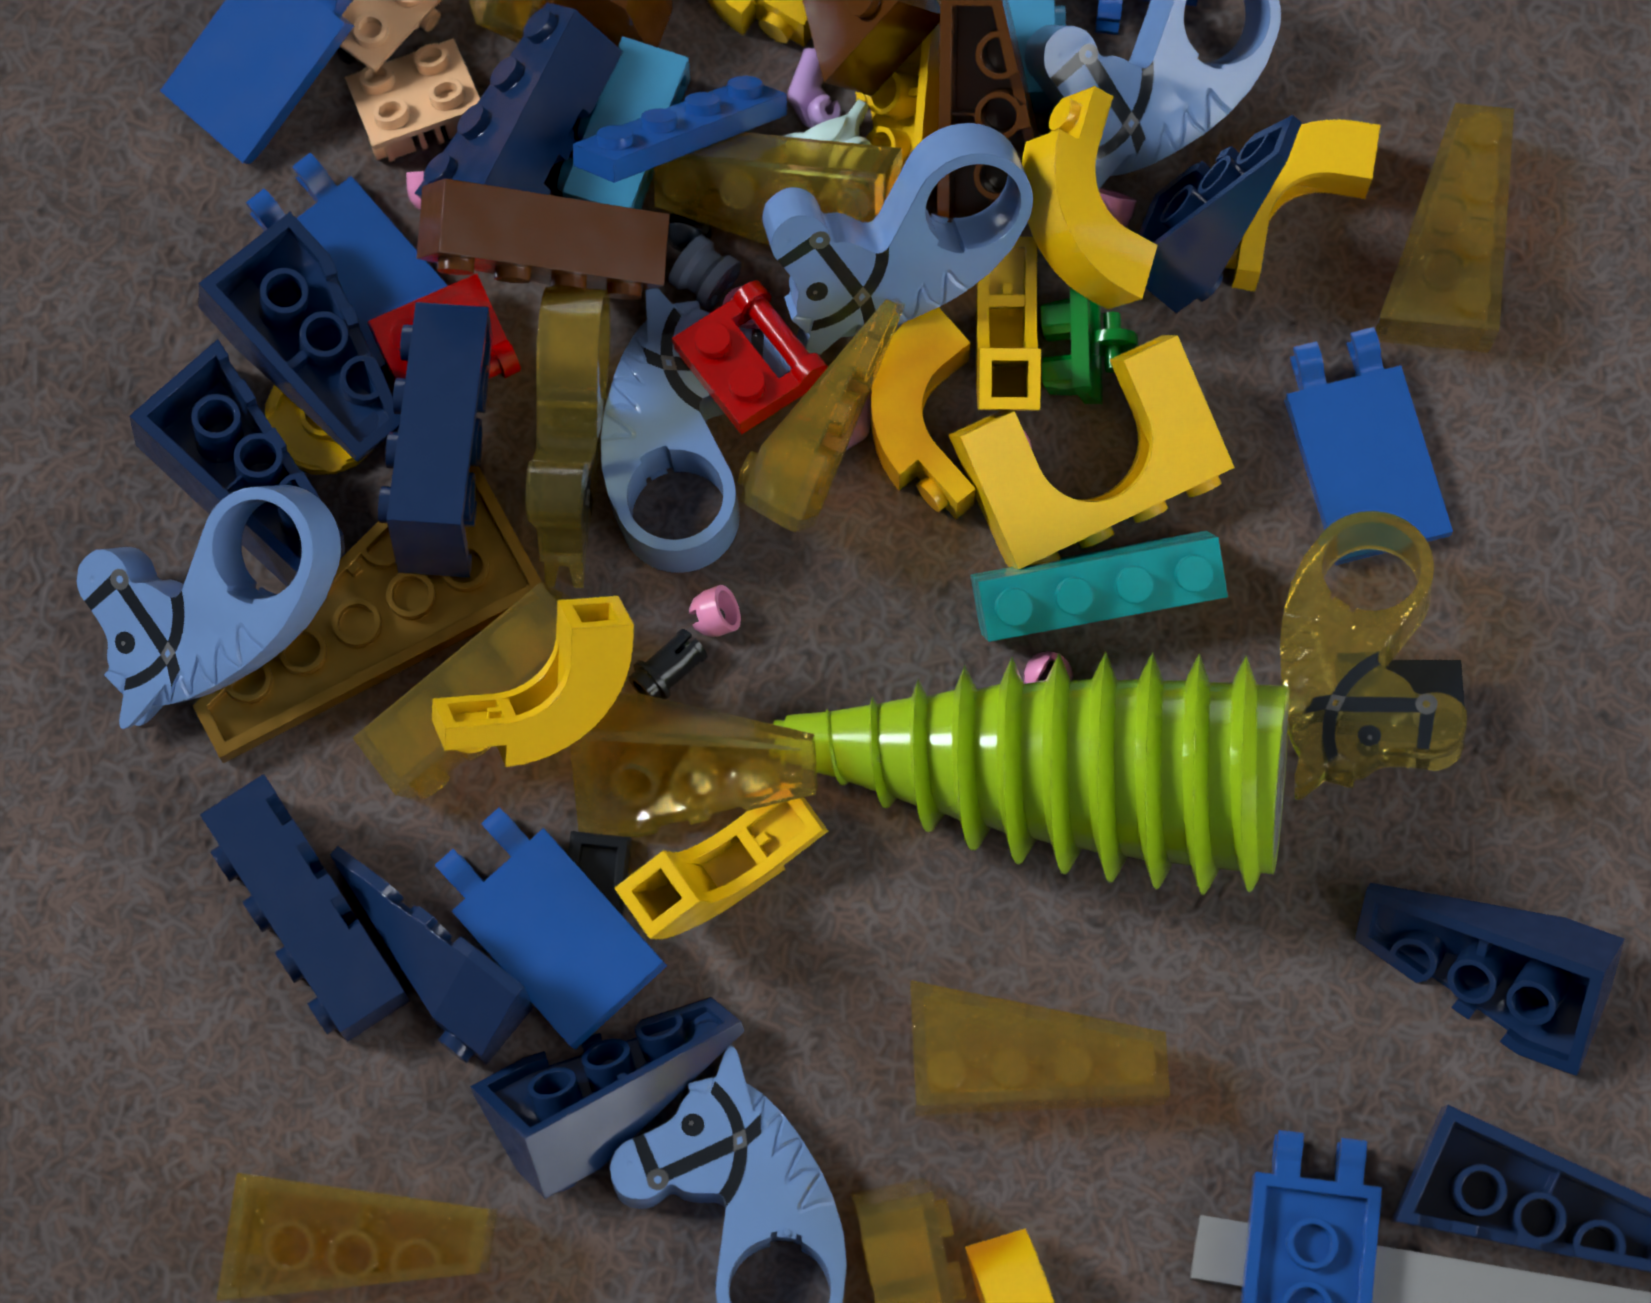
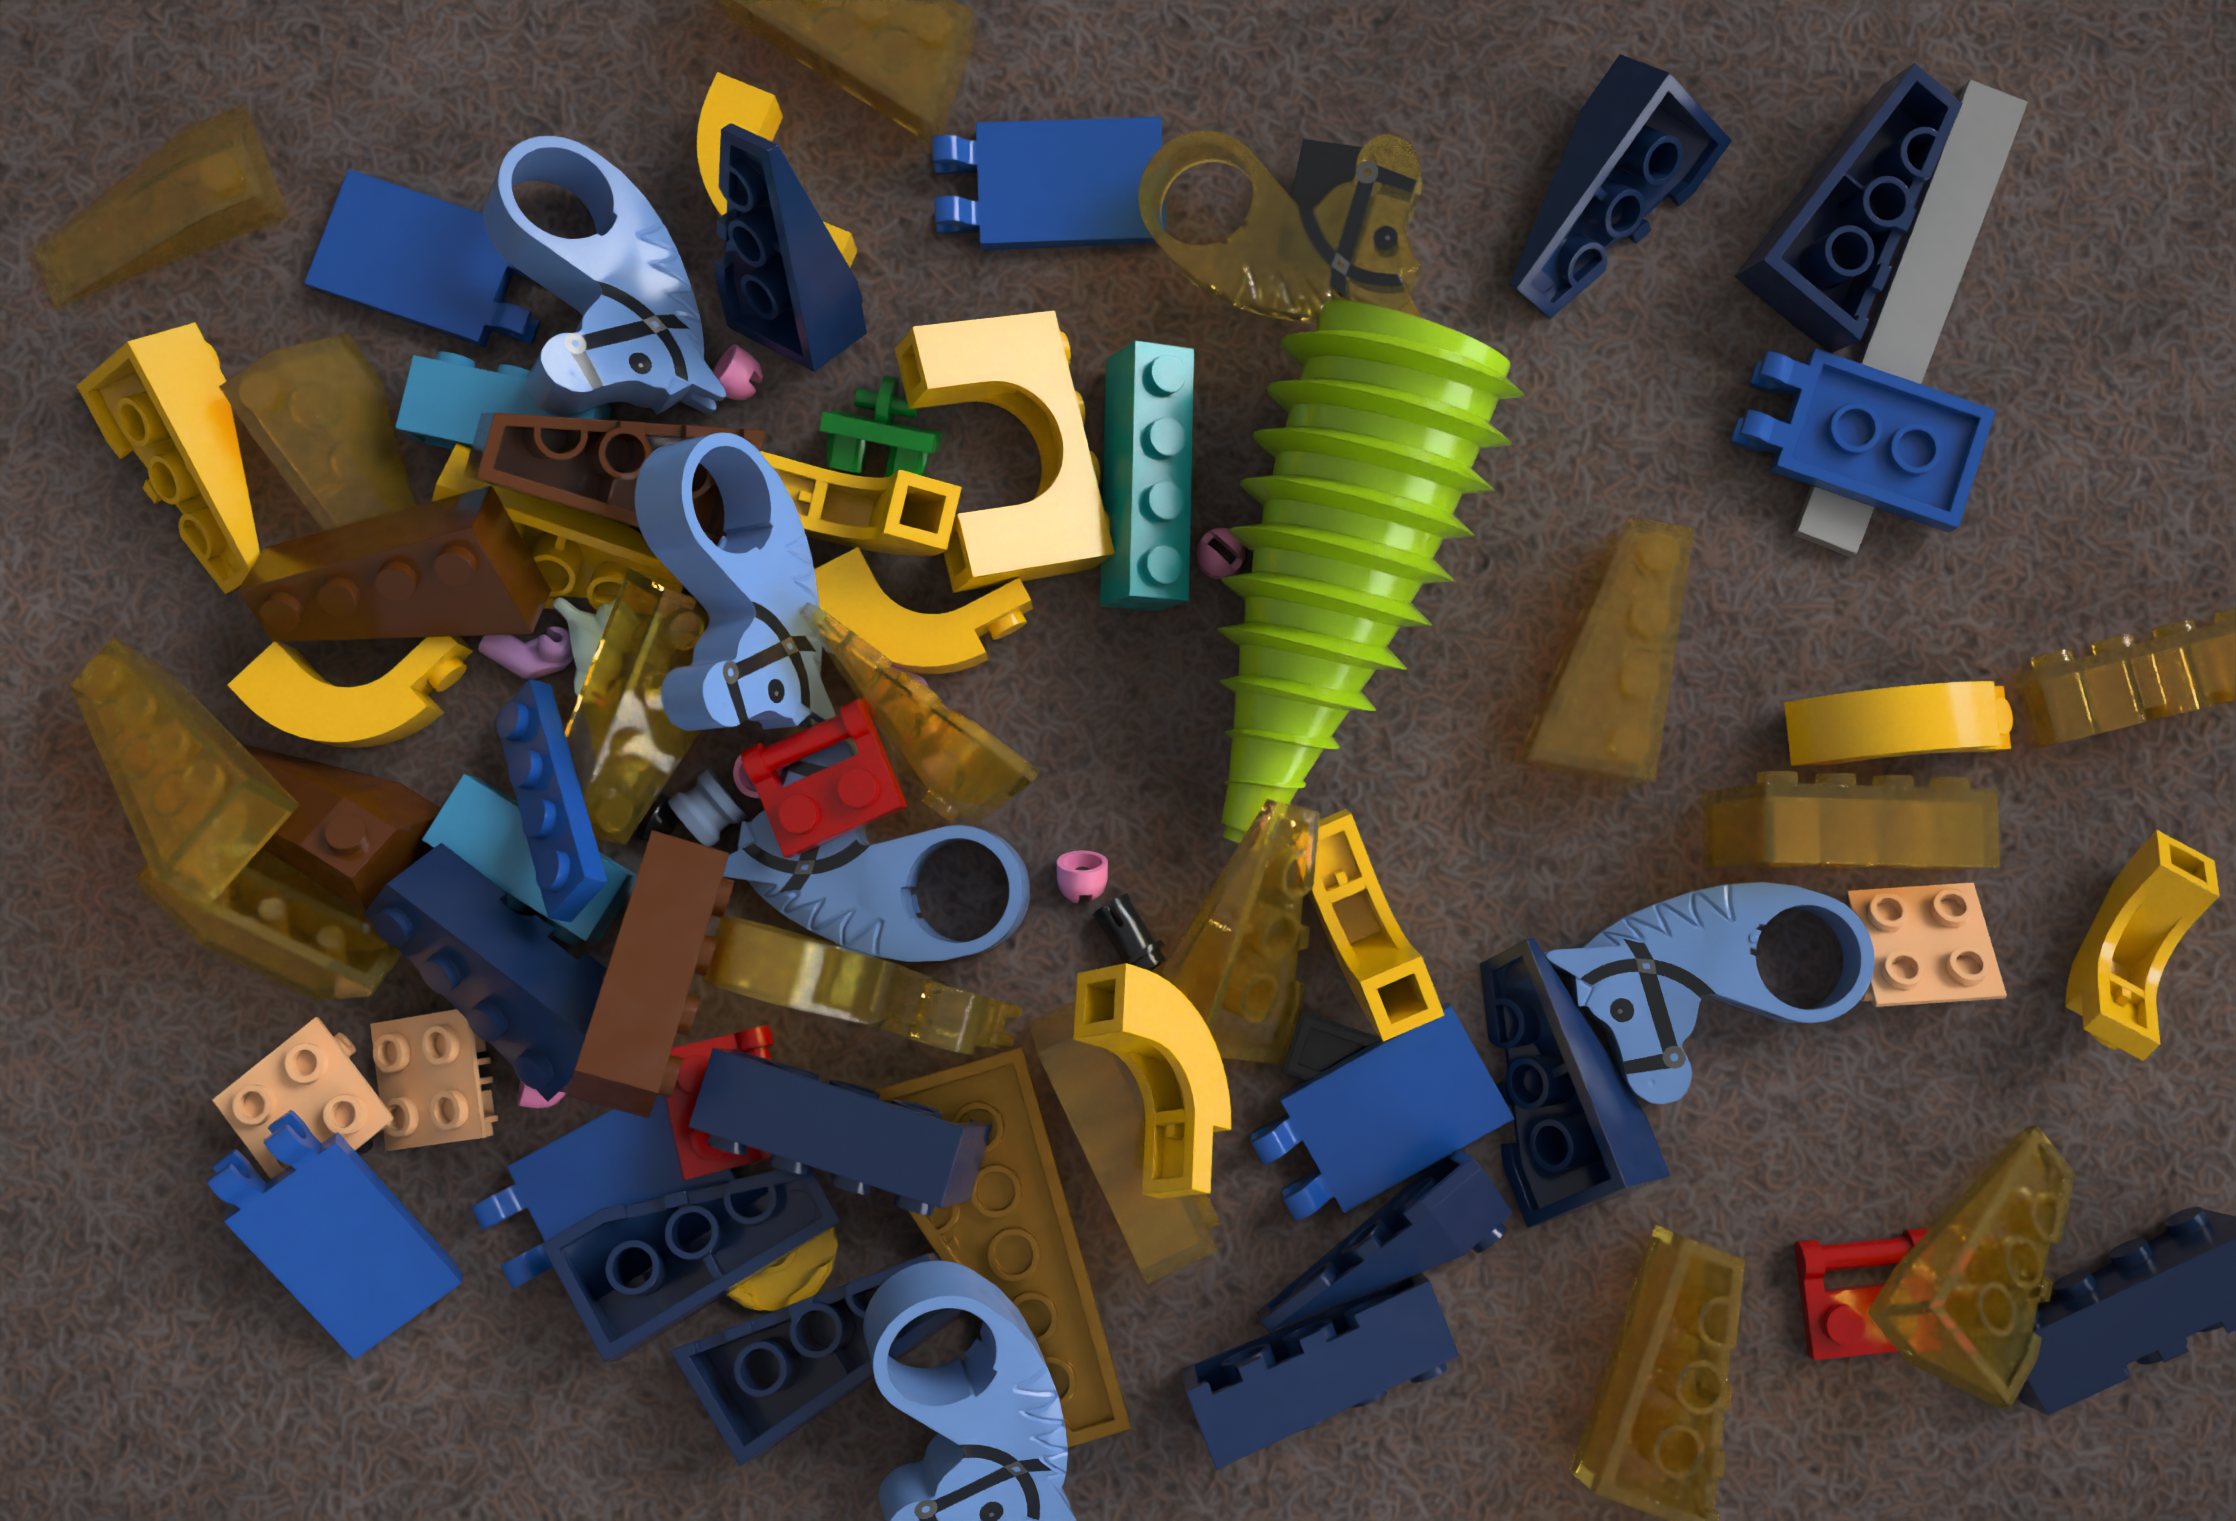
camera: 80 degrees left, 10 degrees up
(1068, 214) = (762, 402): yellow arch -> none

